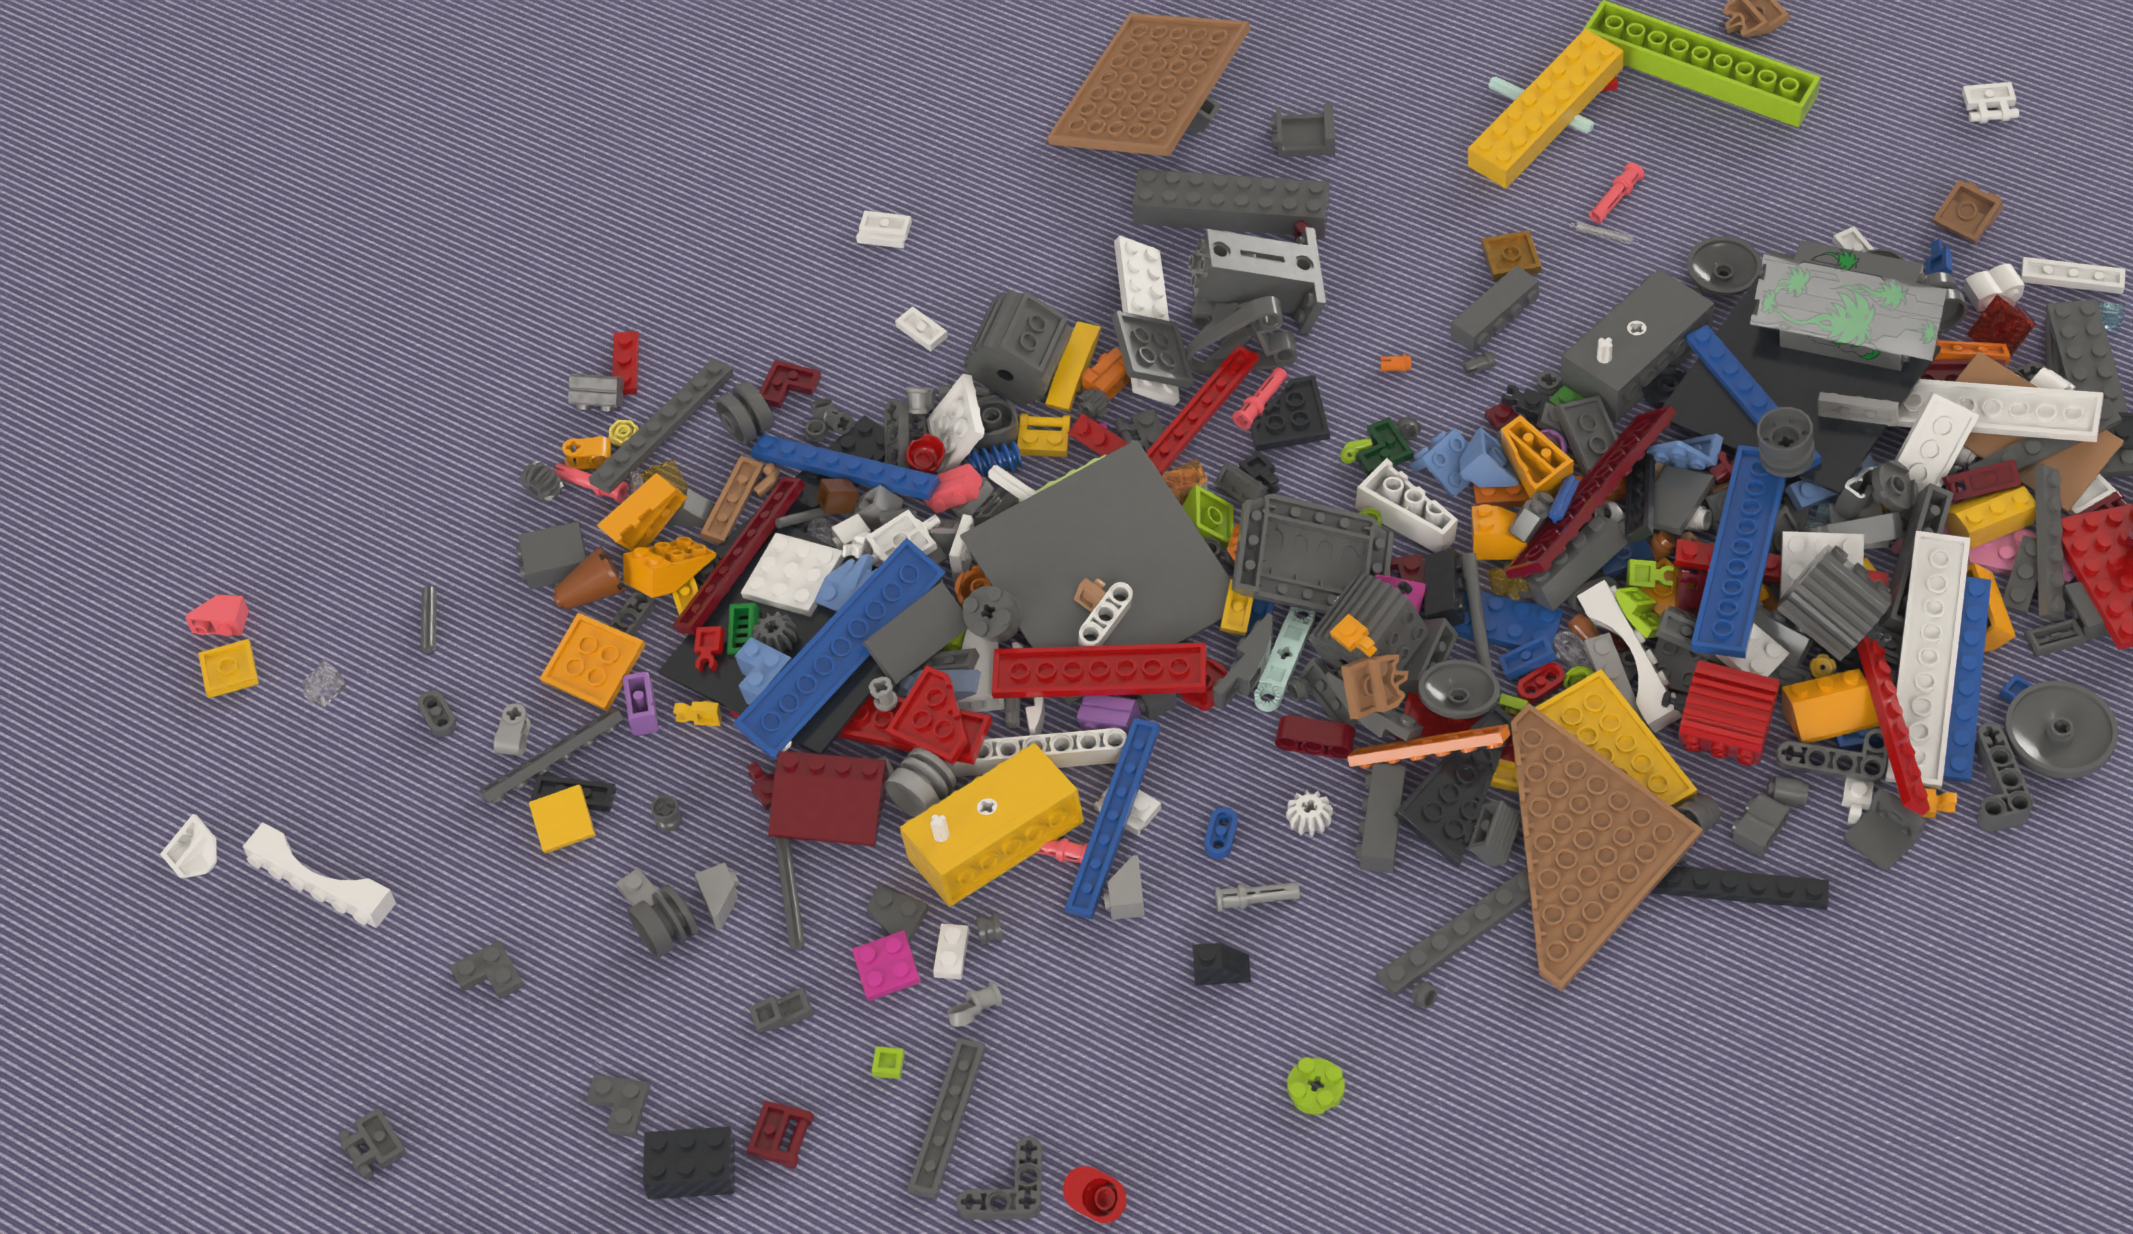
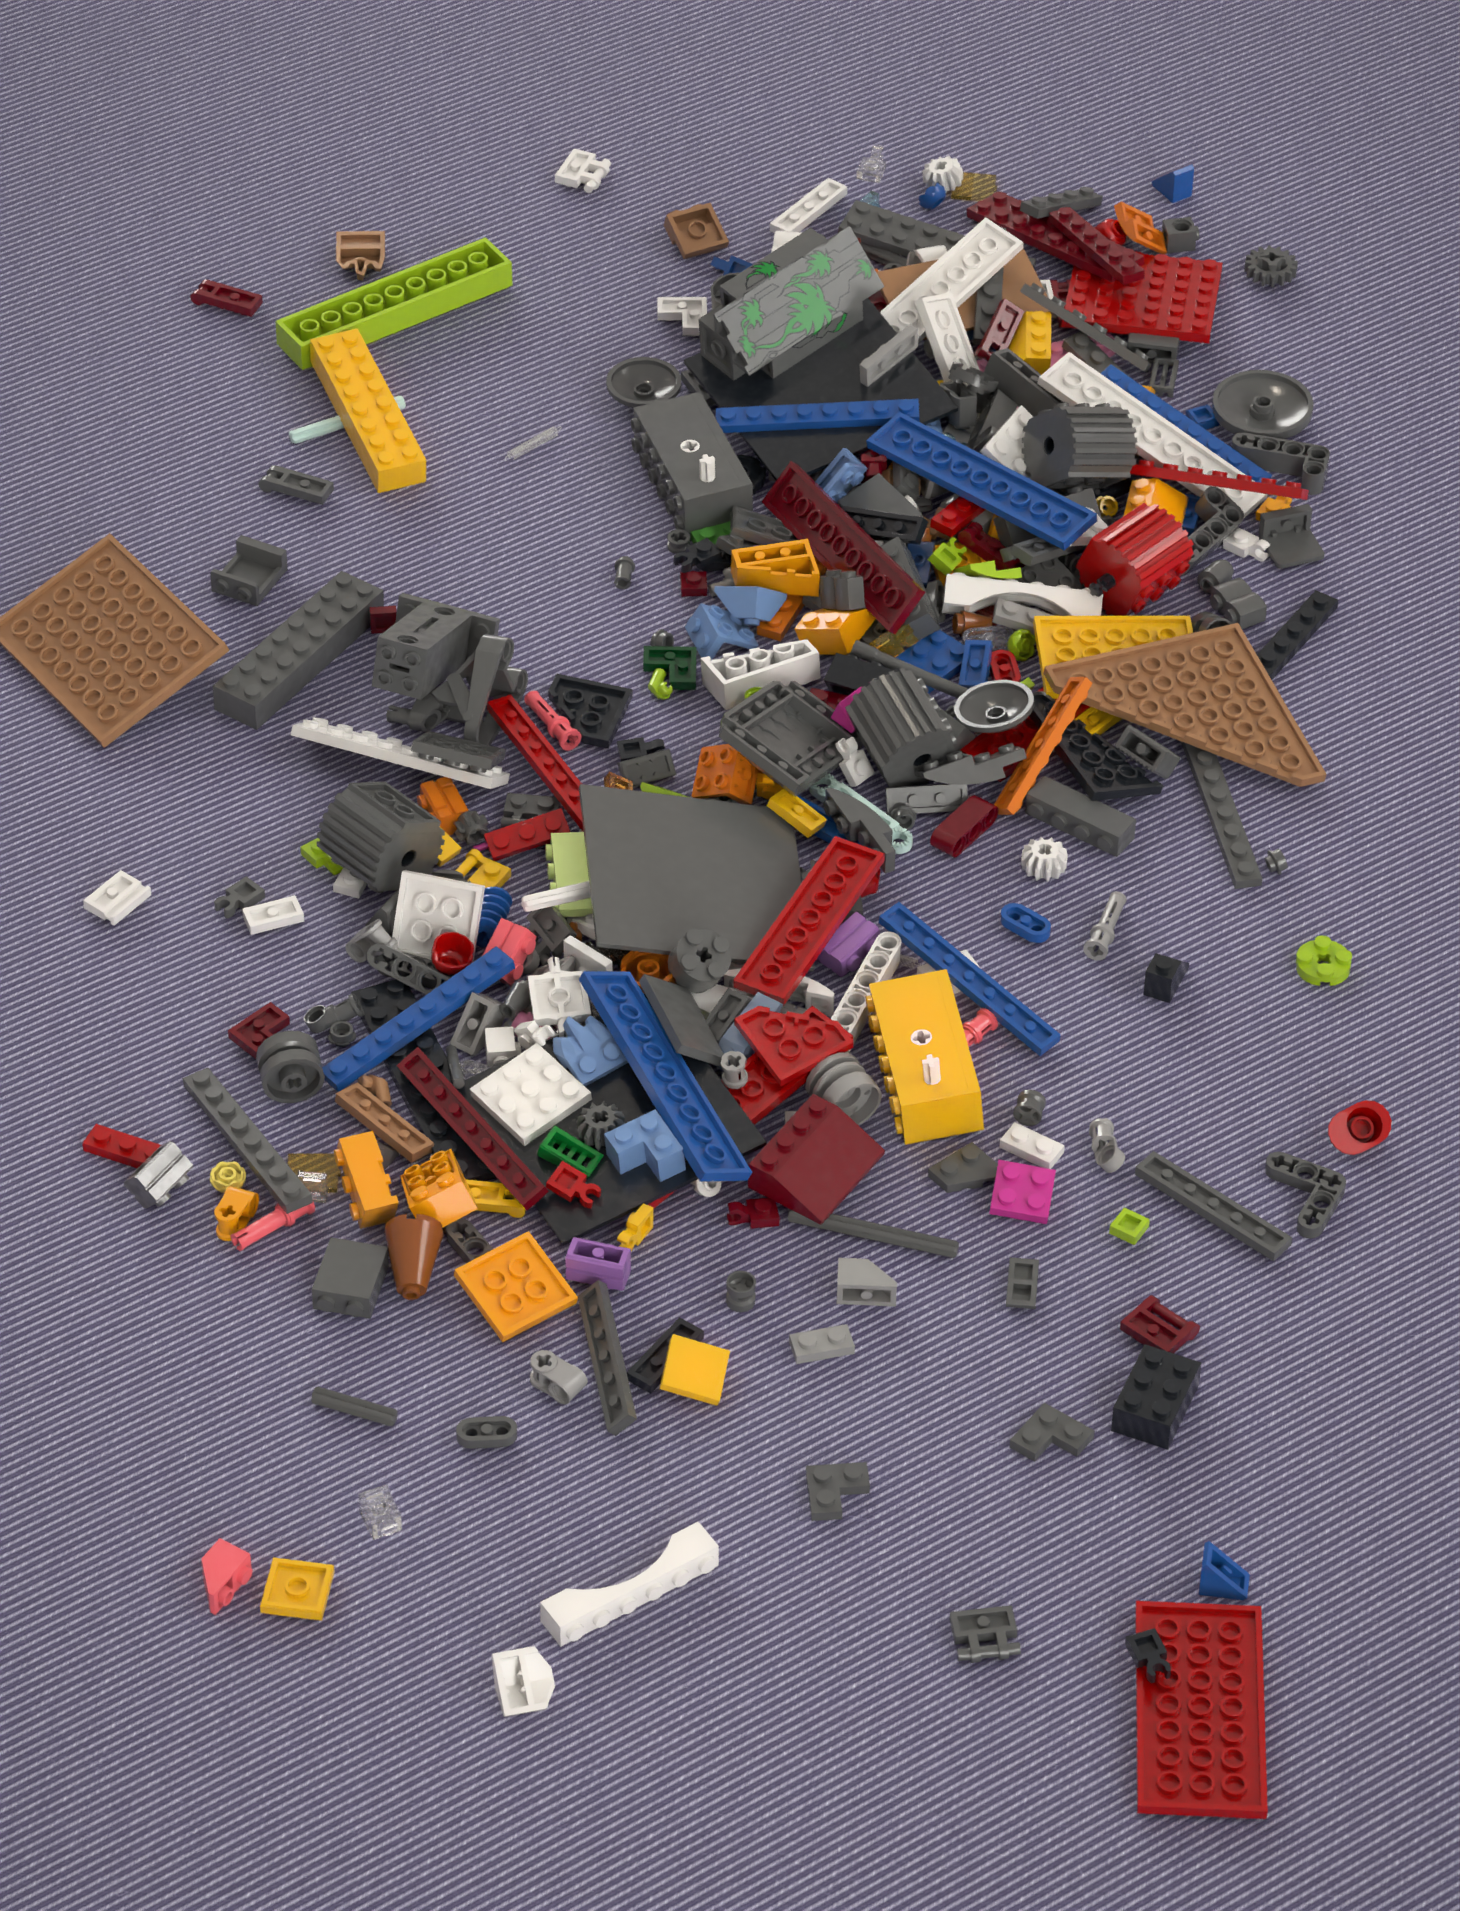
camera: 70 degrees left, 10 degrees down
(541, 482) = (250, 1253): dark grey gear -> none
(667, 918) = (877, 1324): dark grey wheel -> none
(837, 496) = (452, 1034): reddish brown brick -> none
(930, 301) = (240, 895): none -> dark grey plate
(1090, 593) = (725, 889): medium nougat tile -> none
(1110, 607) = (753, 893): white beam -> none
(1125, 892) = (1049, 1001): light grey slope -> none
(1353, 634) = (927, 718): light orange plate -> none
(1373, 685) = (971, 740): medium nougat plate -> none
(1396, 363) = (584, 617): orange pin -> none
(1432, 111) = (296, 484): none -> dark grey plate
(1495, 309) = (571, 537): dark grey brick -> none
(1509, 250) = (514, 504): pearl gold plate -> none
(1563, 499) = (844, 564): blue axle -> none
(1621, 186) = (492, 408): coral pin -> none
(1786, 442) = (904, 399): dark grey wheel -> none

